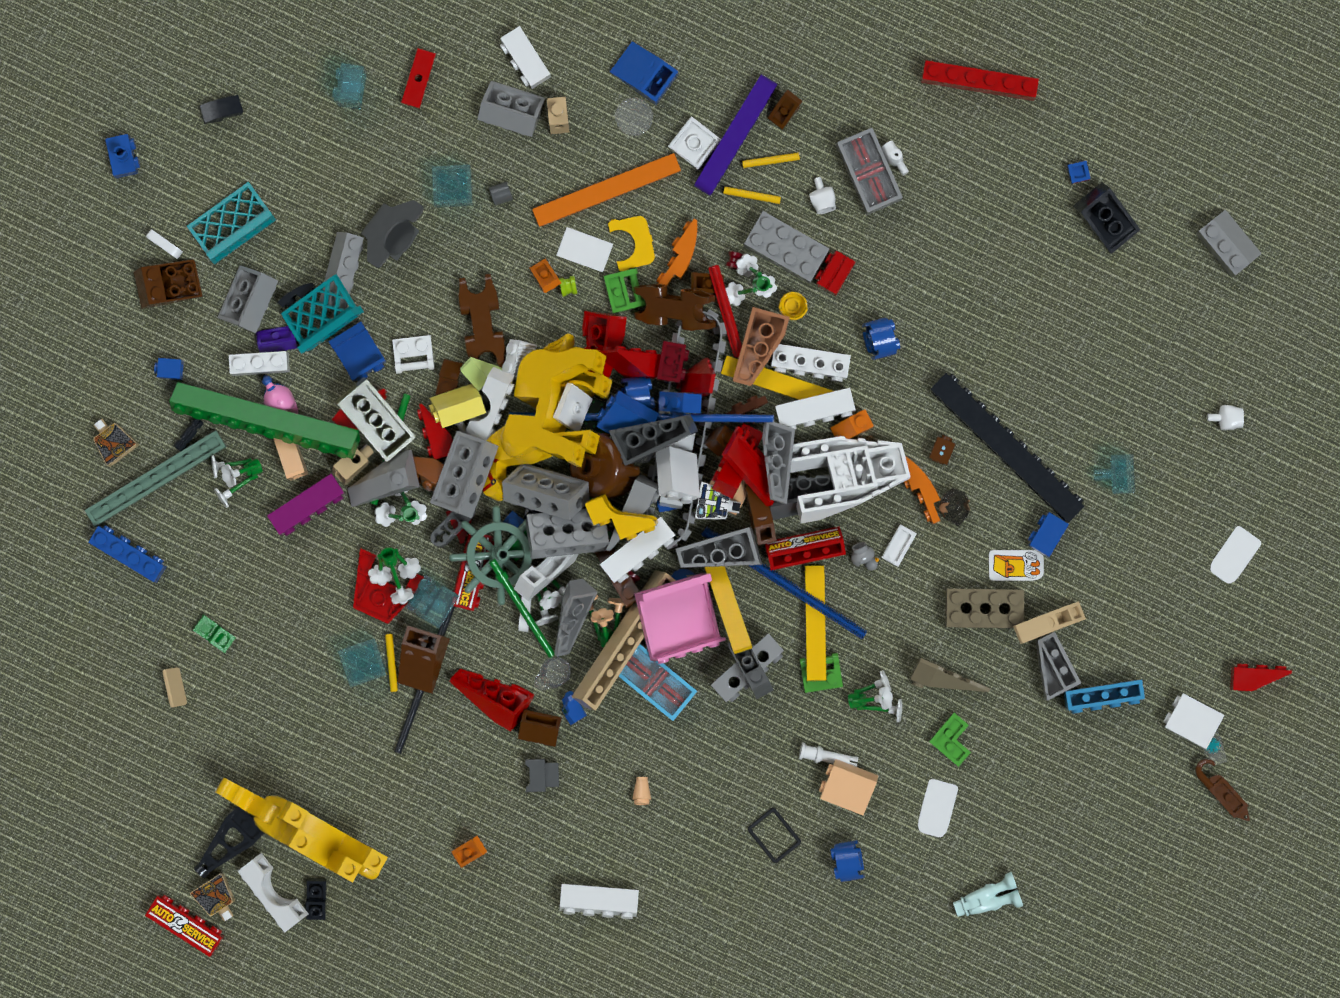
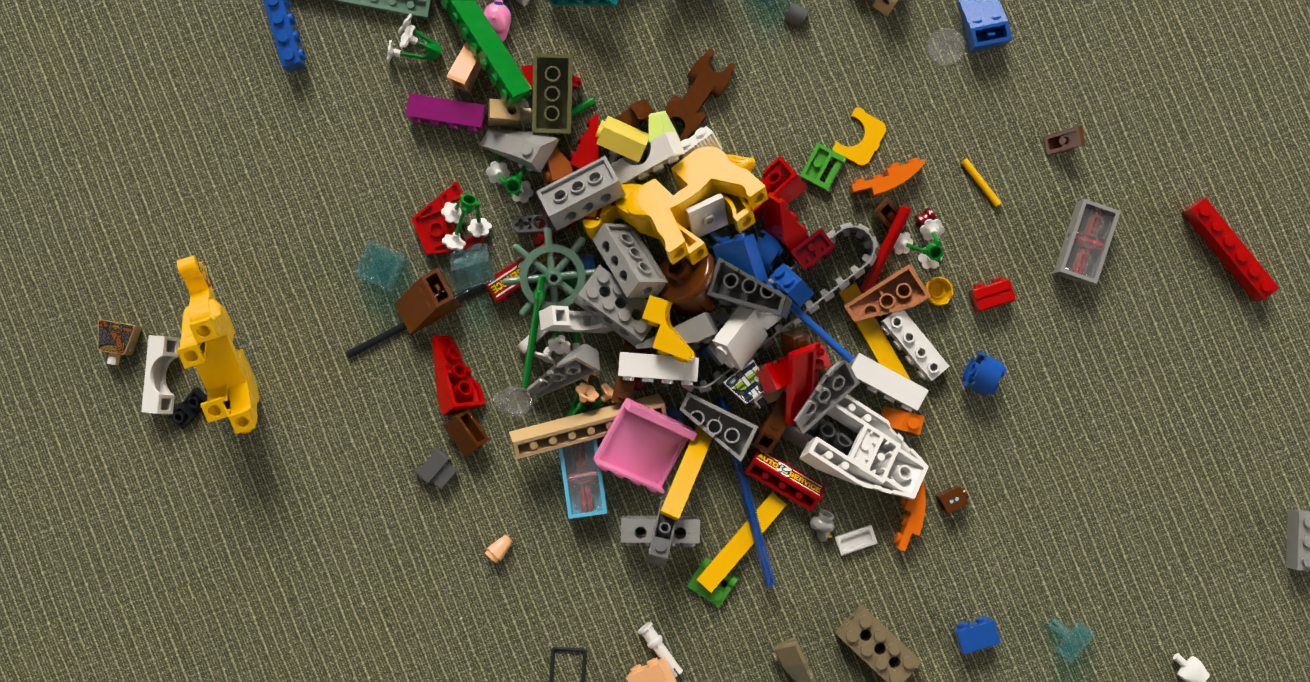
camera: 45 degrees right, 0 degrees up
(174, 687) = (229, 159): tan slope -> none
(184, 925) = (76, 339): brick -> none
(214, 633) = (294, 146): green slope -> none
(245, 825) = (136, 308): black plate -> none
(358, 352) = (587, 35): blue panel -> none
(391, 662) = (403, 285): yellow bar -> none
(413, 348) = (628, 69): white plate -> none
(469, 851) = (332, 476): orange slope -> none
(545, 275) = (774, 104): orange slope -> none
(568, 286) = (784, 126): lime wheel -> none
(572, 709) = (502, 441): blue rock -> none
(584, 249) = (820, 111): white sticker -> none
(599, 900) = (393, 601): white brick -> none
(606, 190) = (877, 82): orange tile -> none
(685, 307) = (860, 219): reddish brown piece -> none
(694, 143) = (973, 105): white plate -> none
(698, 379) = (821, 281): red wedge -> none
(735, 135) = (1009, 127): dark purple beam -> none
(753, 403) = (841, 336): copper wing -> none
(770, 160) = (1018, 169): yellow bar -> none
(786, 247) = (972, 243): light grey brick -> none
(823, 198) = (1032, 231): white piece -> none
(859, 700) = (721, 630): plant -> none
(894, 156) = (1116, 249): white piece -> none
(954, 506) = (925, 550): clear smoke hair -> none
(1007, 448) = (1003, 541): black brick -> none
(1015, 565) = (929, 634): sticker -> none
(1078, 172) = (1242, 384): blue plate -> none
(1106, 217) = (1234, 436): black slope -> none

